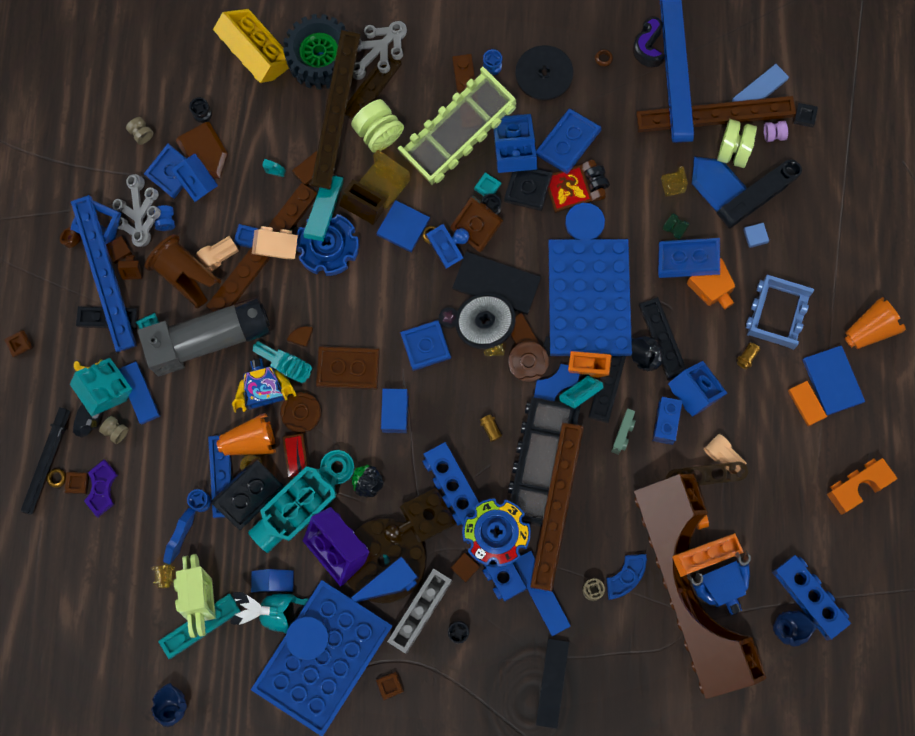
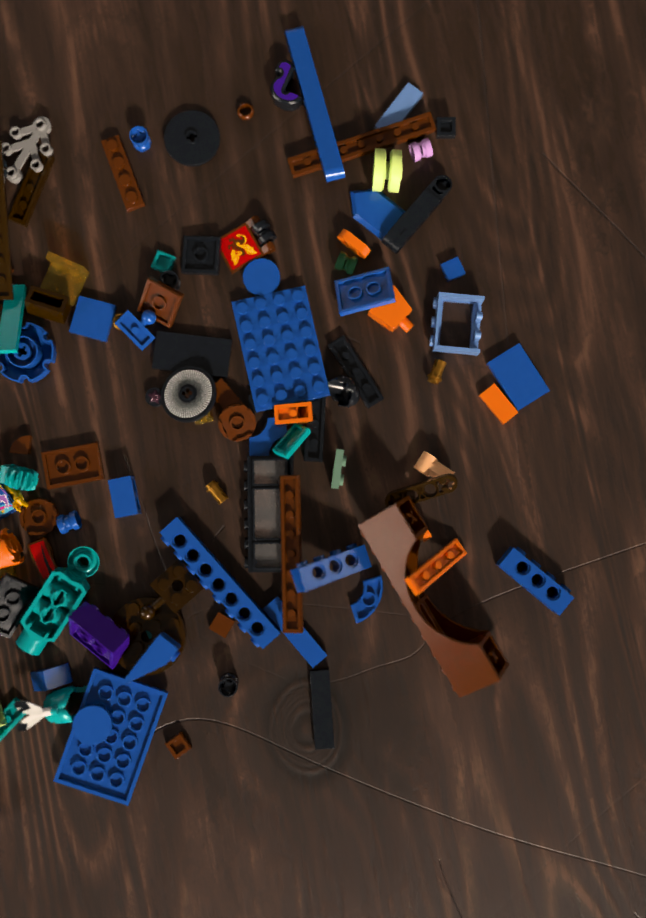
camera: 20 degrees left, 10 degrees up
(330, 423) = (68, 522): none -> blue wheel
(367, 481) = (114, 568): black piece -> none
(377, 125) = (43, 226): yellowish green wheel -> none
(420, 611) = (189, 676): light grey brick -> none
(425, 345) = (139, 428): blue tile -> none
(458, 127) = (122, 211): clear window -> none
(488, 517) = (250, 578): piece -> none
(515, 144) = (178, 215): blue slope -> none
(567, 534) = (303, 575): none -> blue brick
(568, 141) = (229, 201): blue tile -> none
(590, 589) = (340, 615): dark tan wheel -> none
(667, 420) = (375, 449): blue brick -> none
(675, 182) = (336, 220): clear yellow panel -> none
(687, 209) = (354, 243): none -> orange beam
(697, 388) = (396, 413): blue slope -> none
(724, 584) = (456, 587): torso -> none
(756, 235) = (422, 254): medium blue tile -> none
(785, 256) = (452, 269): none -> blue tile
(793, 628) = (524, 612): dark blue hair -> none
(846, 495) = (547, 480): orange arch -> none
(874, 325) = (546, 317): orange cone -> none

